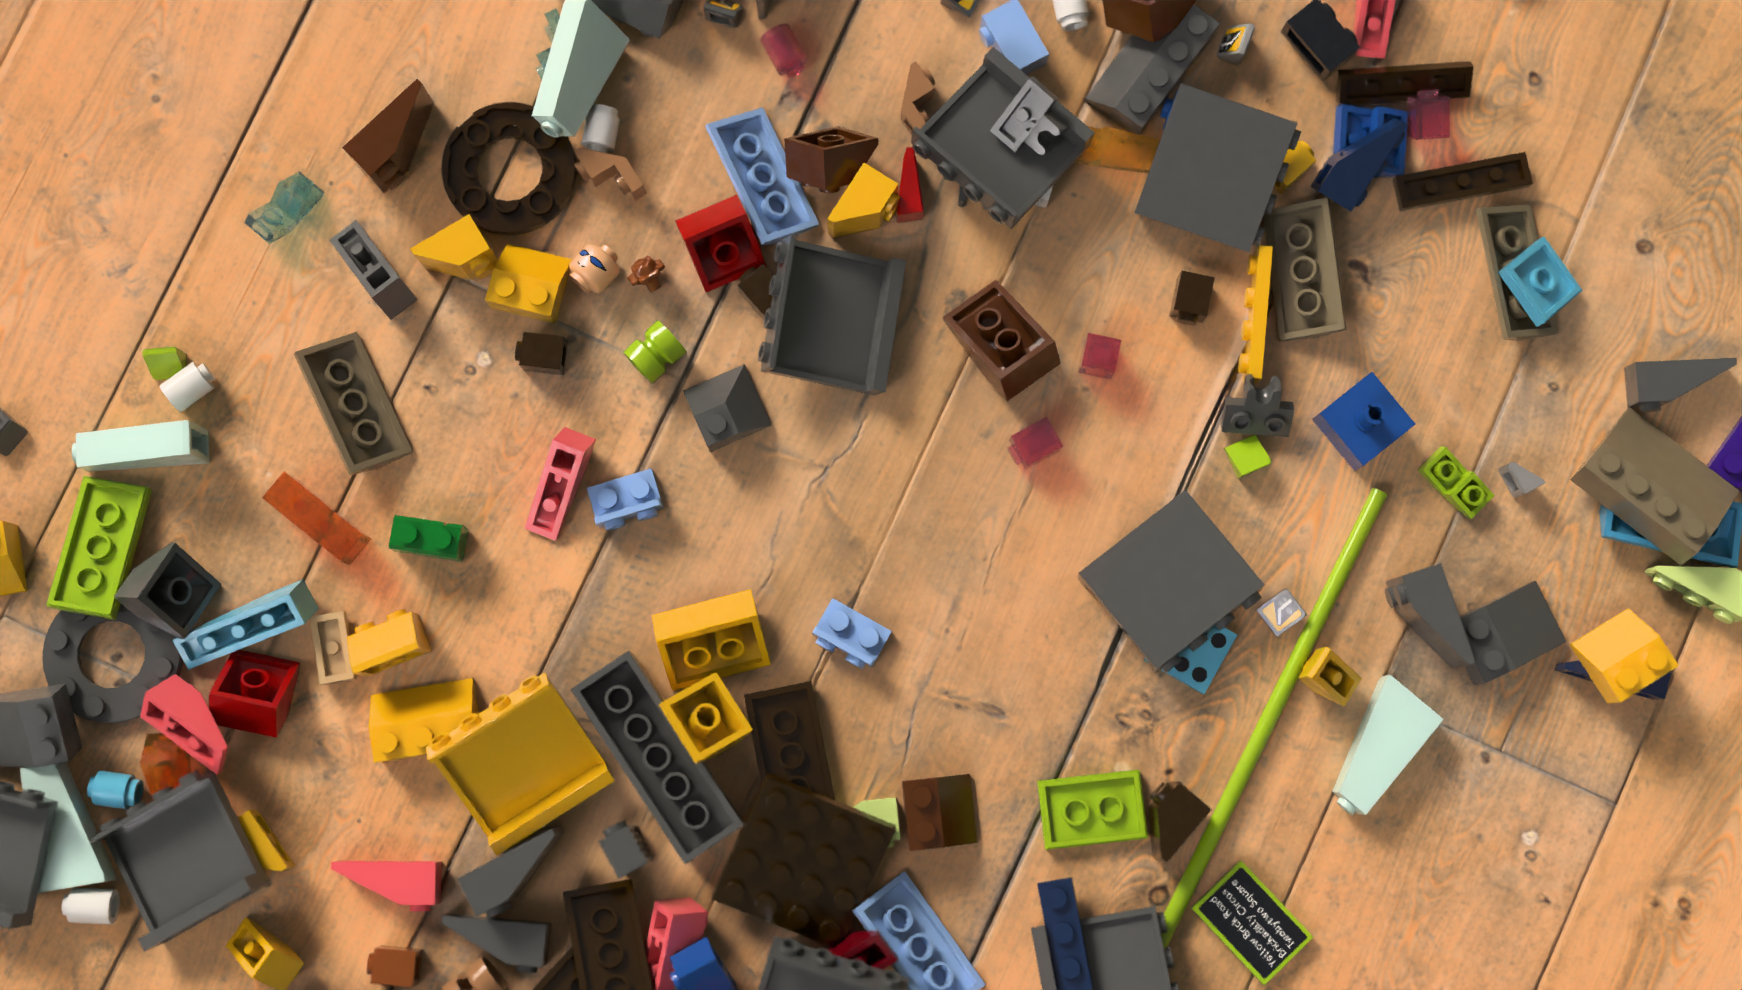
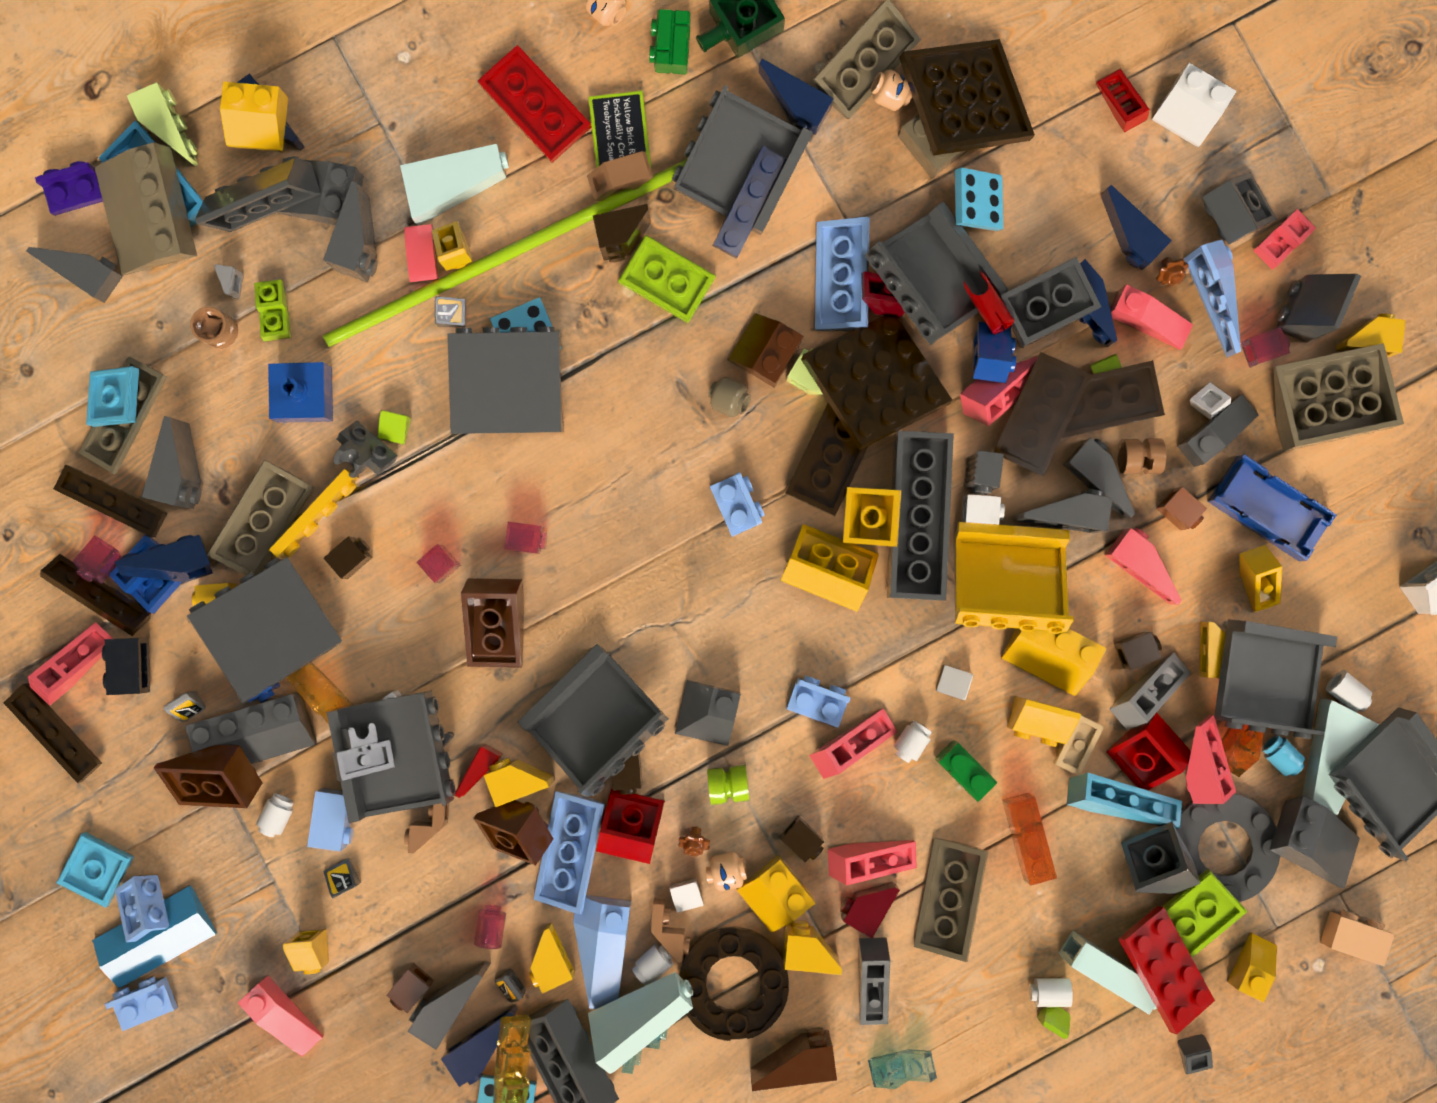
camera: 140 degrees left, 5 degrees up
(88, 489) = (1166, 969): none -> red plate
(296, 754) = (1150, 692): none -> light grey slope
(338, 788) = (1138, 650): none -> dark brown brick
(428, 335) = (868, 907): none -> dark red slope
(460, 382) = (870, 860): none -> coral slope
(502, 527) = (912, 742): none -> white brick
(502, 618) = (954, 682): none -> white slope
(599, 811) = (982, 509): none -> white brick
(617, 218) = (686, 895): none -> white slope
(663, 112) = (601, 946): none -> light blue wedge
(701, 61) = (551, 964): none -> yellow slope
(938, 735) = (729, 397): none -> dark tan head
(1219, 877) = (623, 173): none -> medium nougat slope
(1355, 648) = (420, 253): none -> coral slope
(1361, 887) = (534, 104): none -> red plate
(1424, 256) = (174, 467): none -> dark grey slope
(1497, 421) = (214, 327): none -> medium nougat wheel
(1556, 583) = (259, 195): none -> dark grey slope

